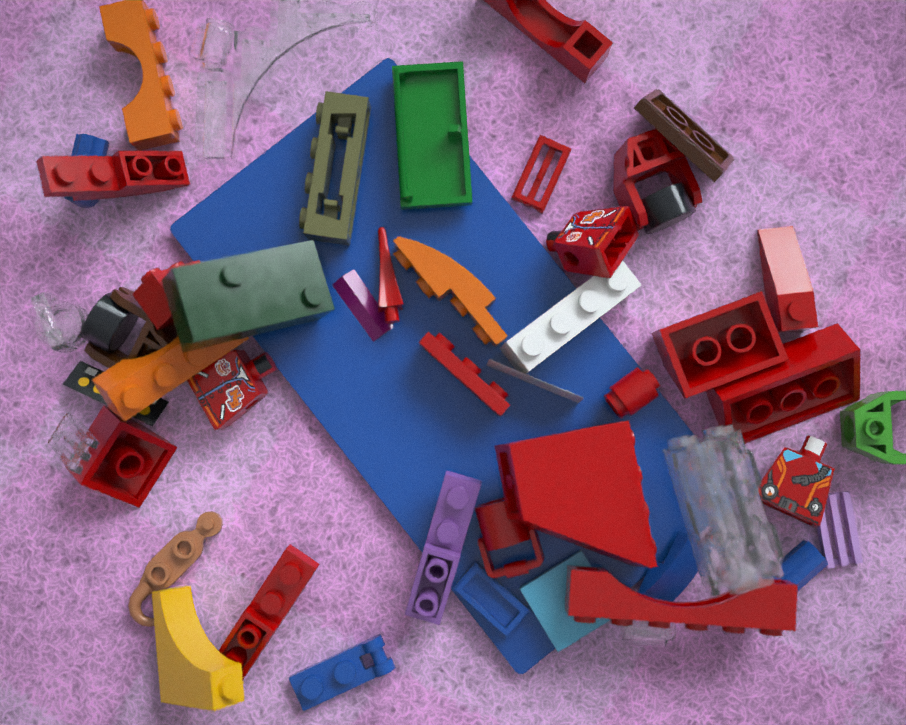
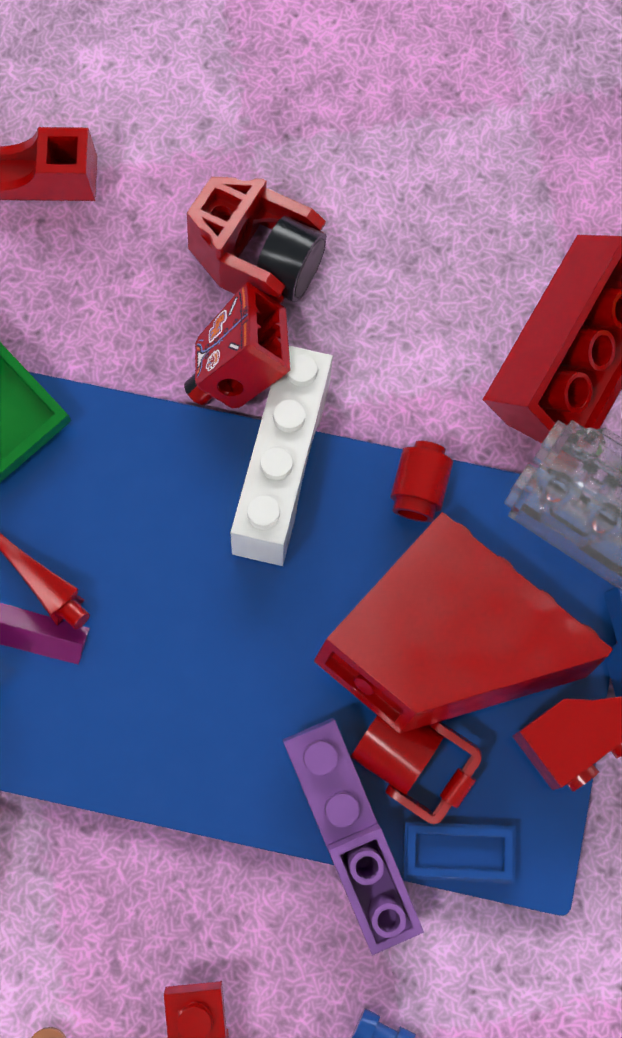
camera: 40 degrees left, 10 degrees down
(442, 276) = (102, 520): orange slope -> none
(465, 372) = (213, 610): red plate -> none
(529, 201) = (134, 369): red tile -> none
(547, 600) = (524, 797): medium azure tile -> none
(561, 392) = (300, 556): white sticker -> none
(684, 134) = (245, 164): reddish brown tile -> none
(720, 345) = (471, 353): red slope -> none
(786, 280) = (488, 237): slope -> none

